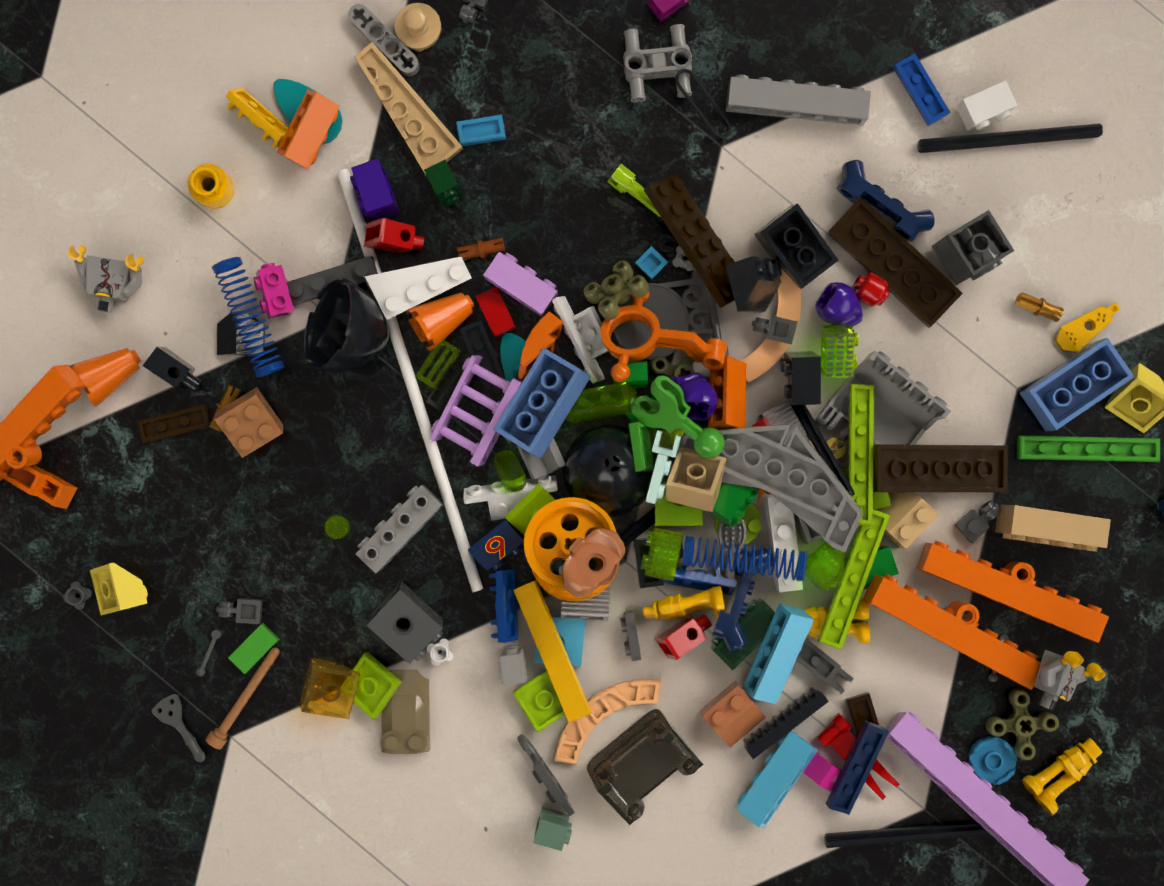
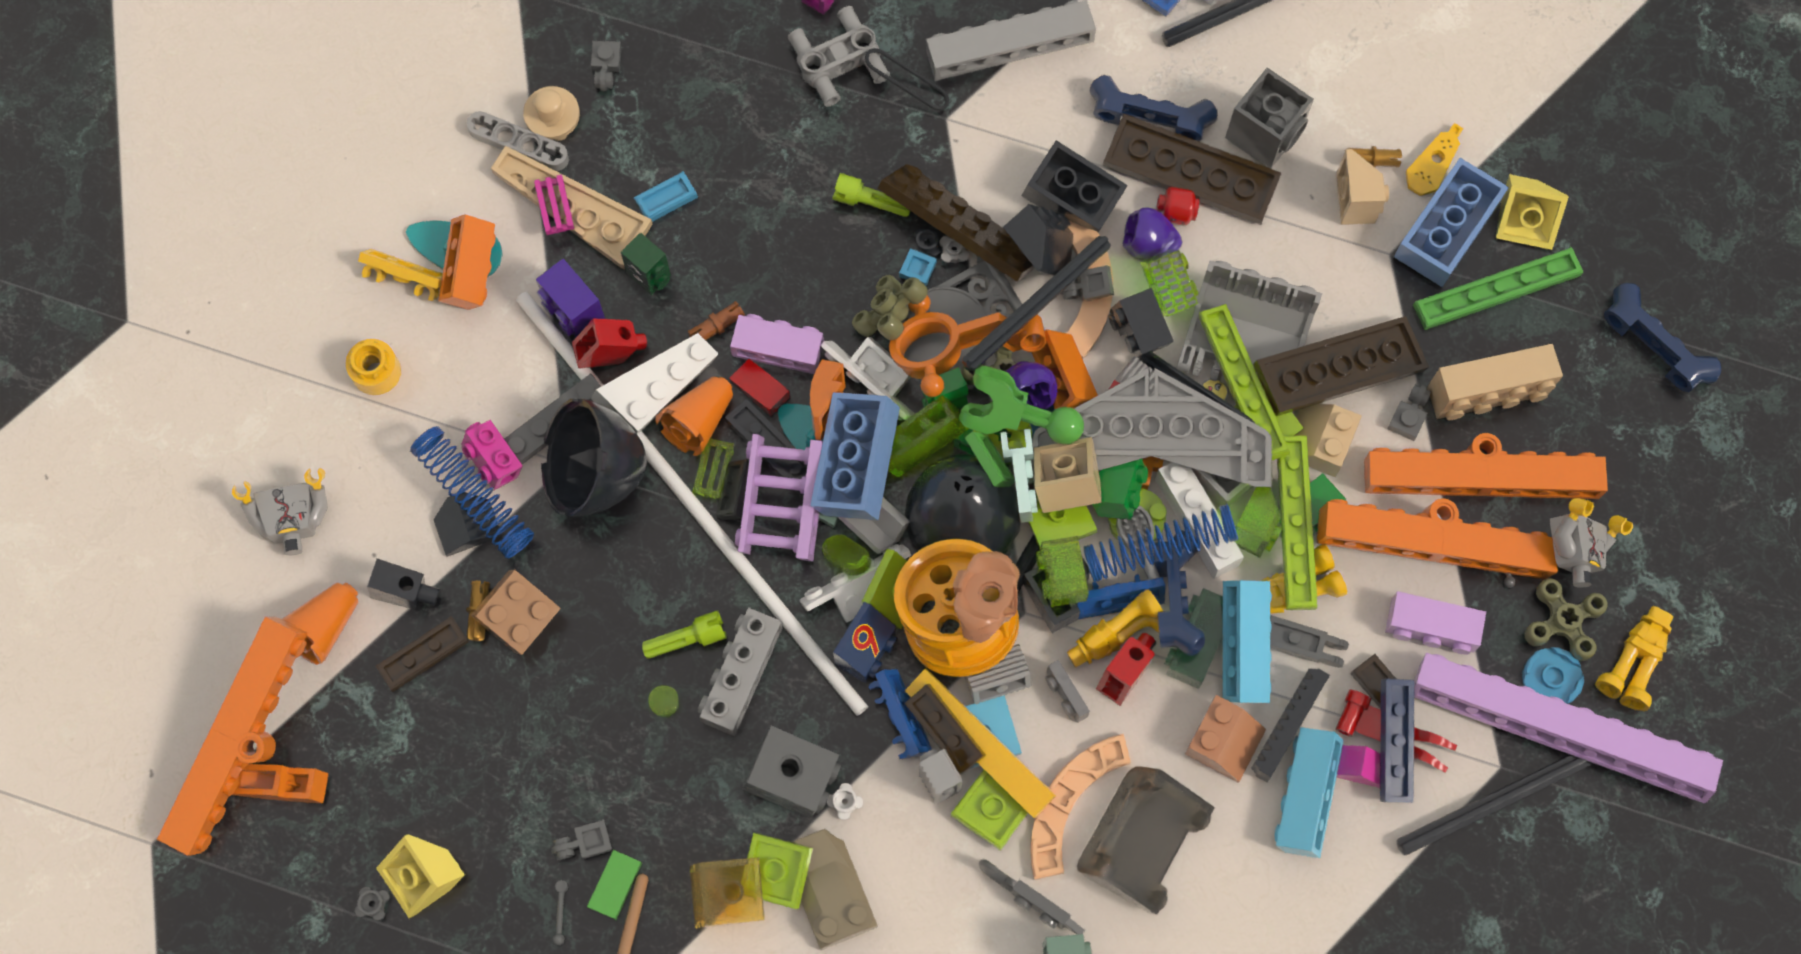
camera: 20 degrees left, 15 degrees down
(380, 118) = (549, 183): none -> dark pink tile
(381, 487) = (705, 630): none -> lime piece
(530, 632) = (945, 728): none -> dark brown tile
(726, 335) = (1035, 303): none -> black axle
(924, 689) = (1435, 623): none -> lavender brick
(1017, 332) = (1360, 190): none -> tan slope

